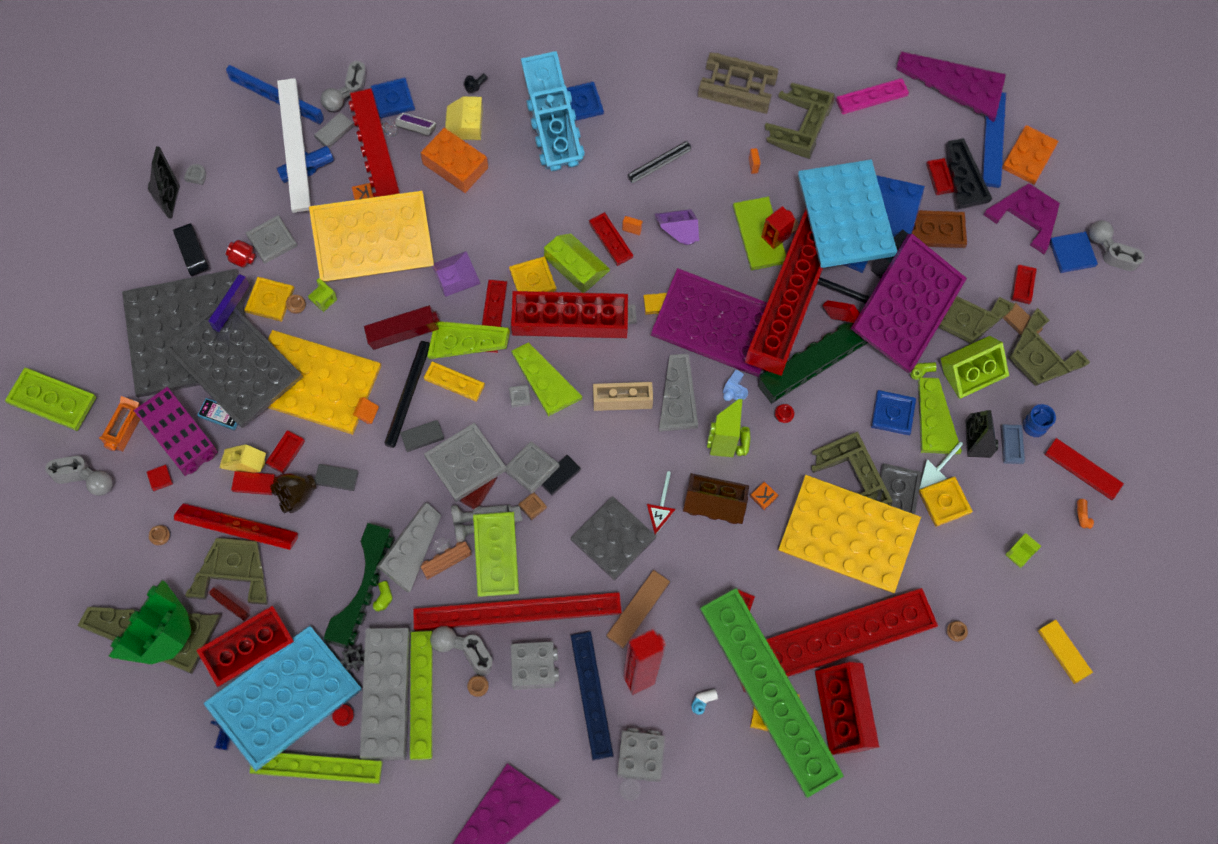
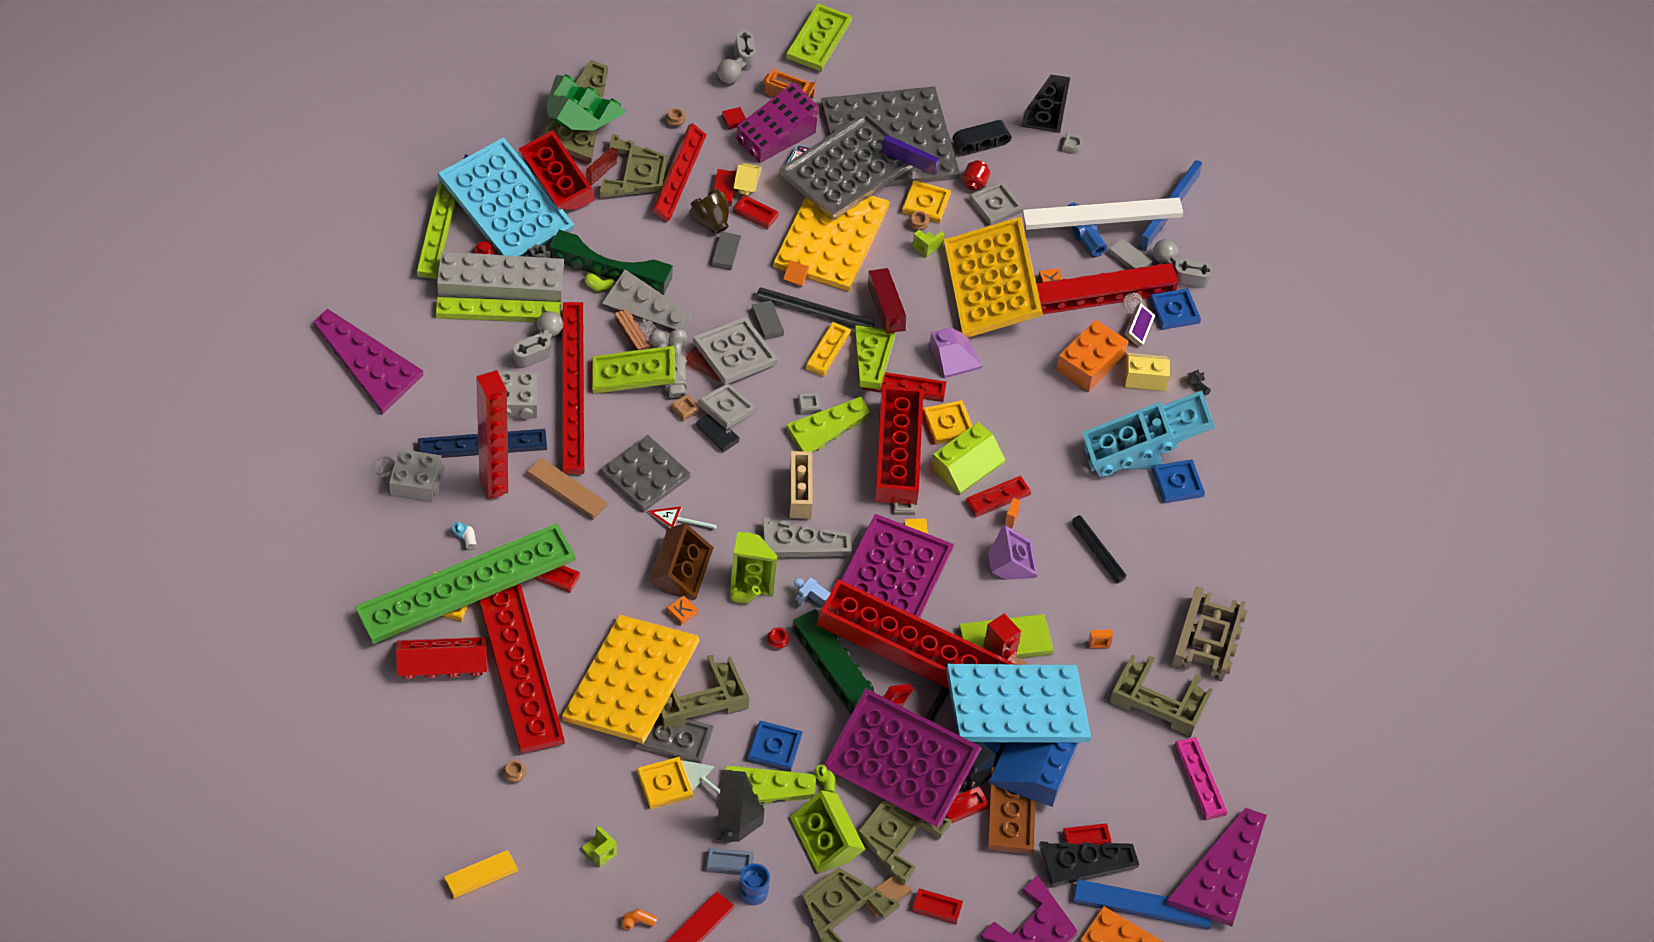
camera: 90 degrees right, 15 degrees down
(478, 686) = (501, 352): medium nougat plate -> none

